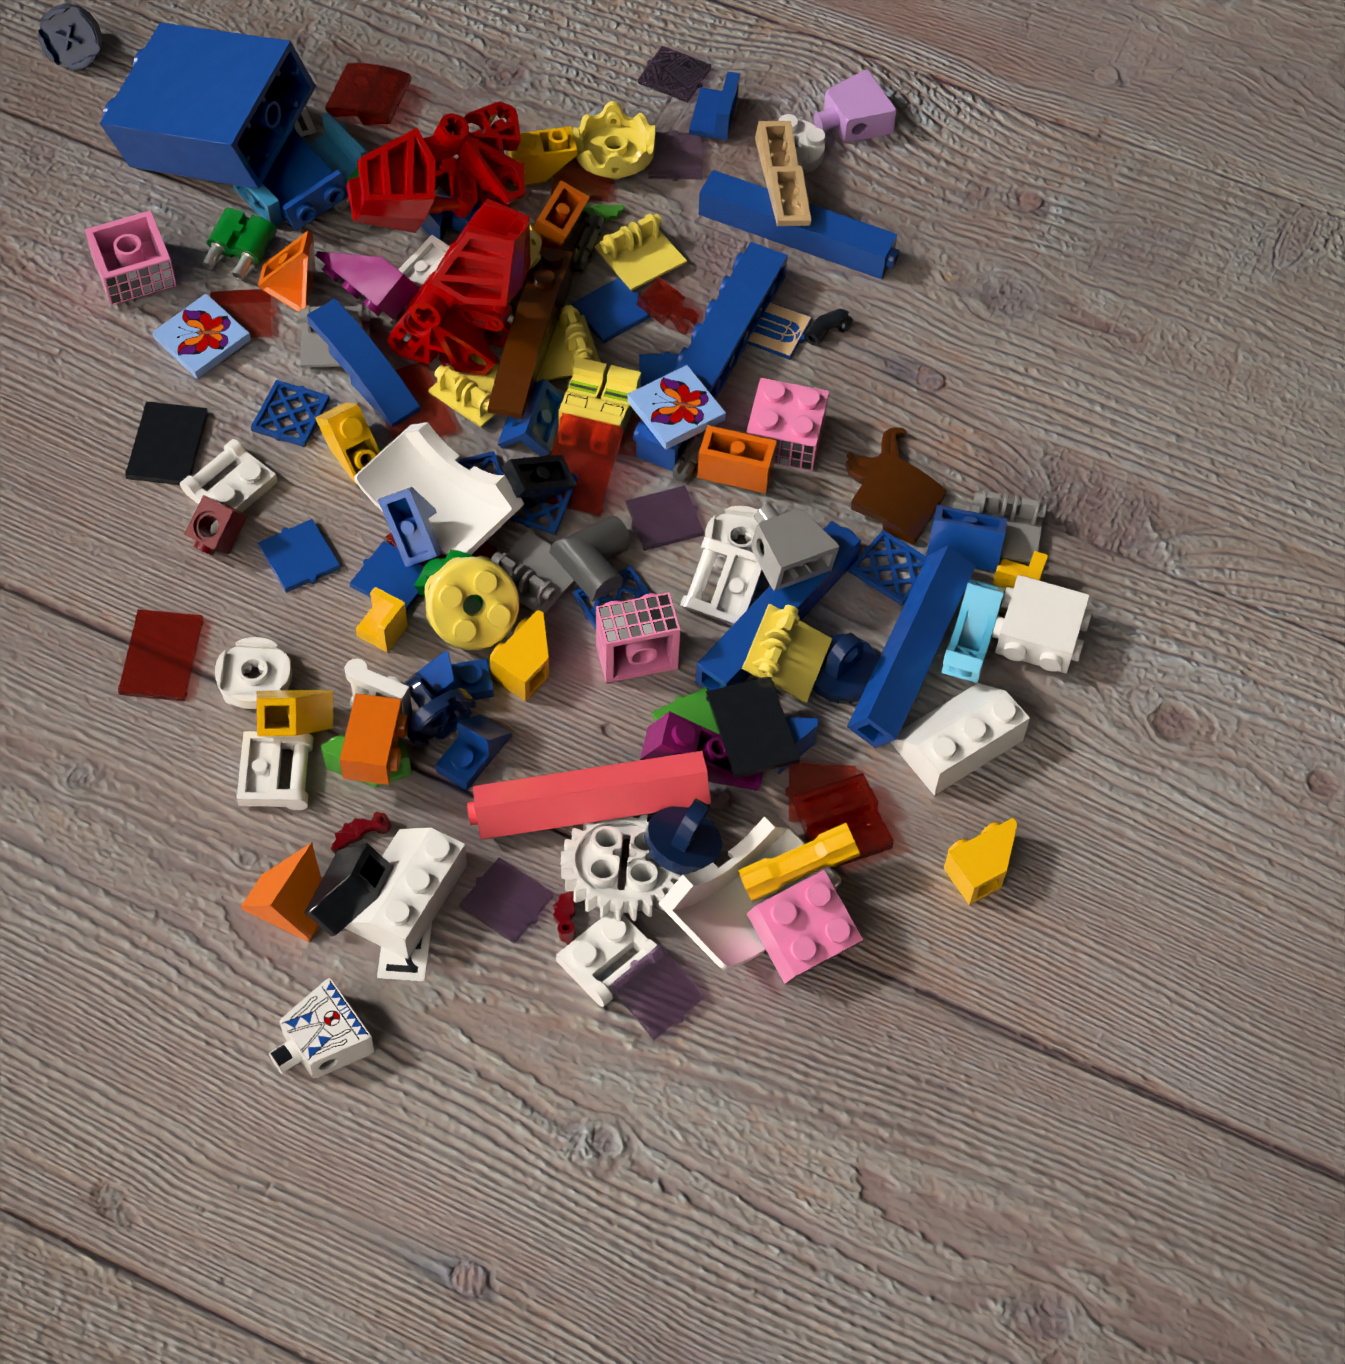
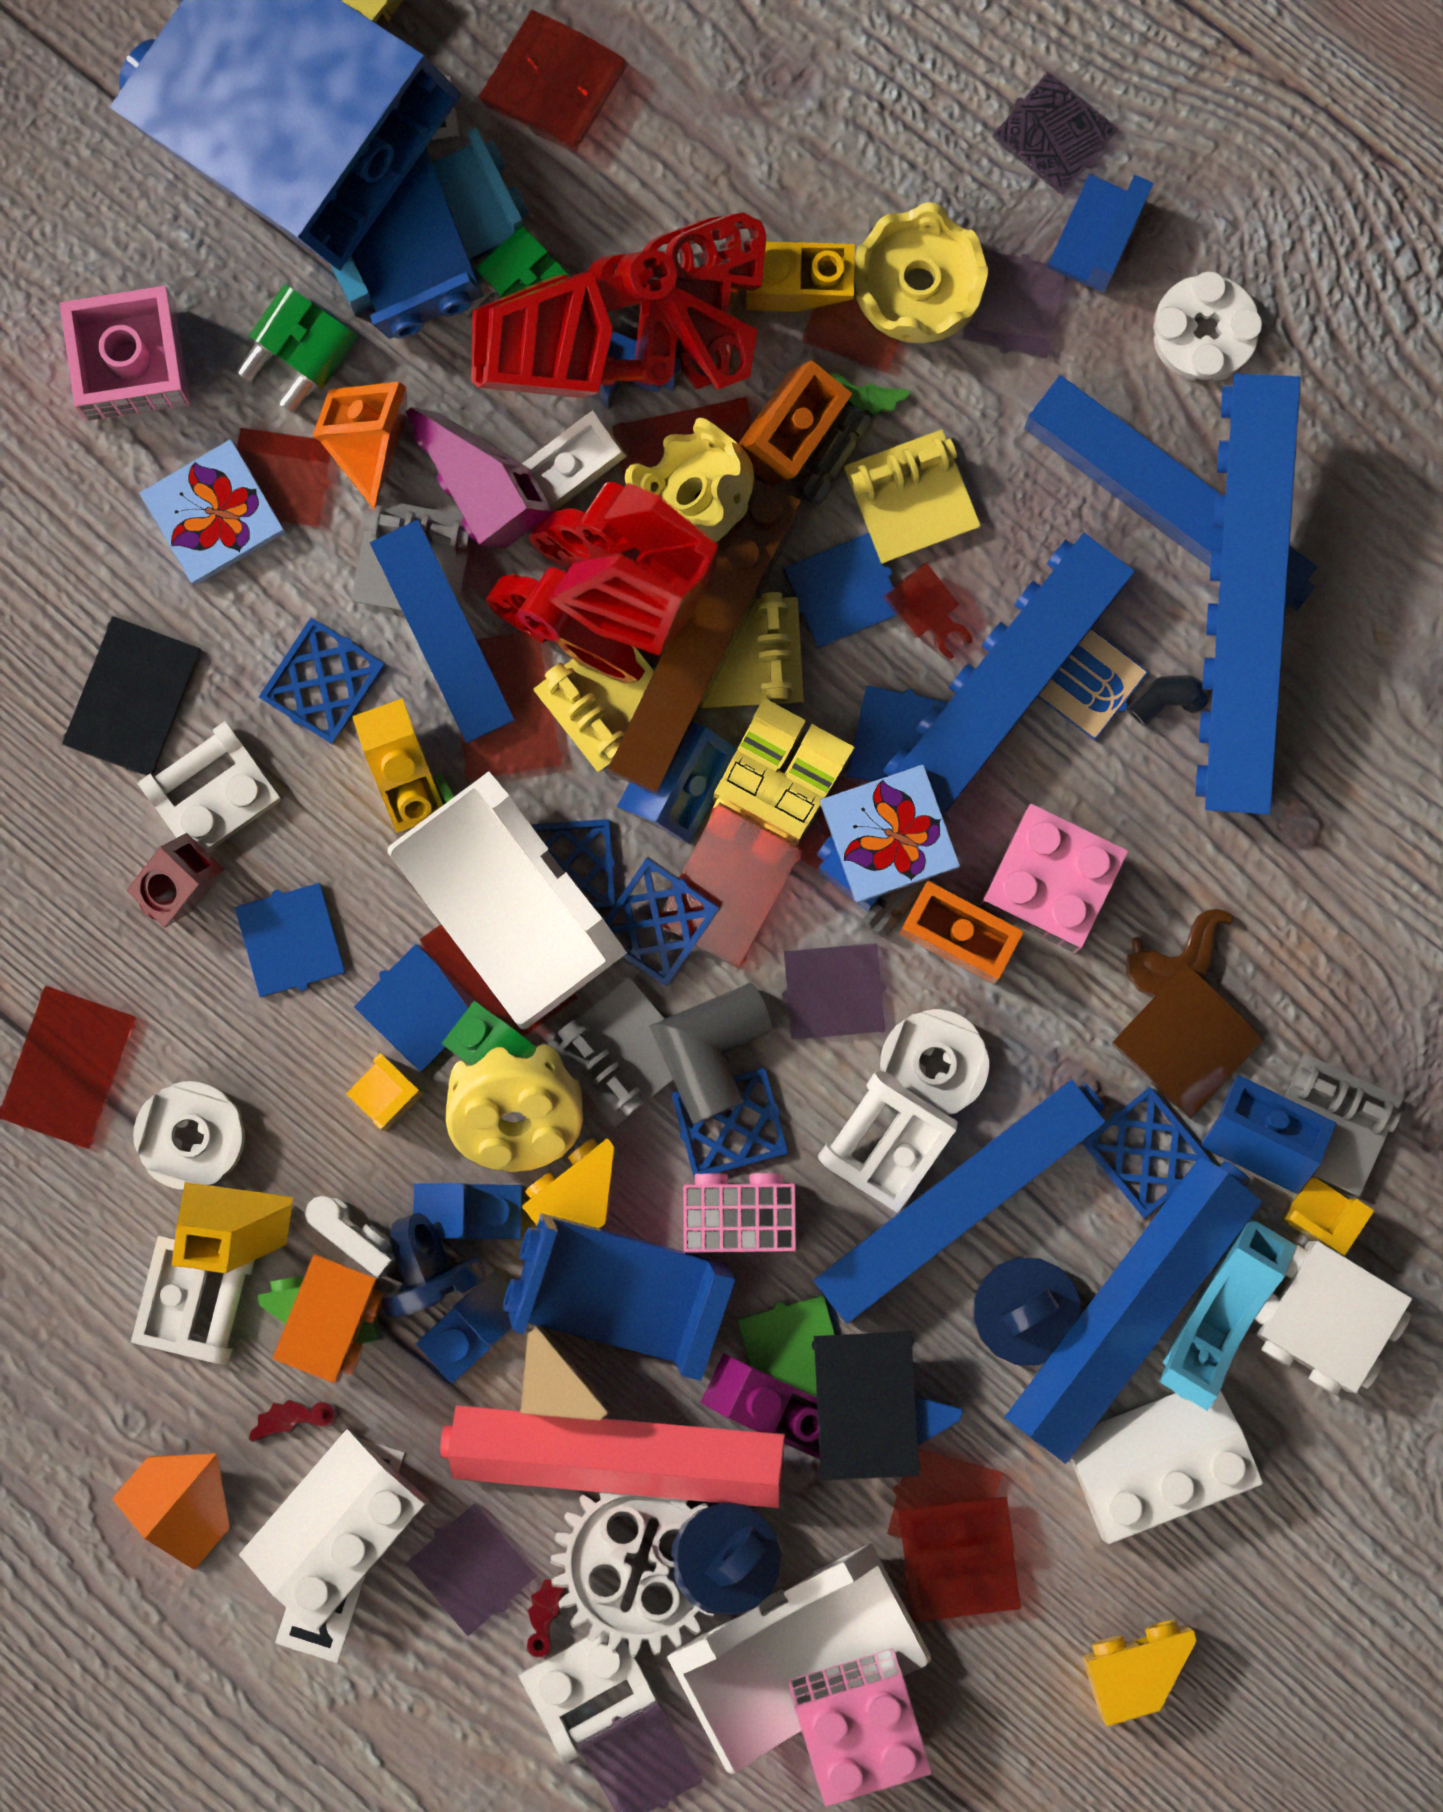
camera: 15 degrees right, 25 degrees up
(322, 1034) = (184, 1725): white torso -> none
(348, 887) = (255, 1523): black slope -> none
(410, 525) = (453, 958): blue slope -> none
(538, 478) = (656, 913): black slope -> none
(540, 748) = (555, 1384): none -> tan slope
(568, 698) = (620, 1292): none -> blue panel
(773, 873) = (916, 1629): yellow axle -> none
(782, 173) = (1167, 414): tan slope -> none
(787, 652) = (947, 1291): light yellow hinge -> none
(791, 547) = (992, 1131): light grey torso -> none
(857, 109) = (1326, 282): lavender torso -> none
(863, 249) = (1251, 592): none -> blue brick

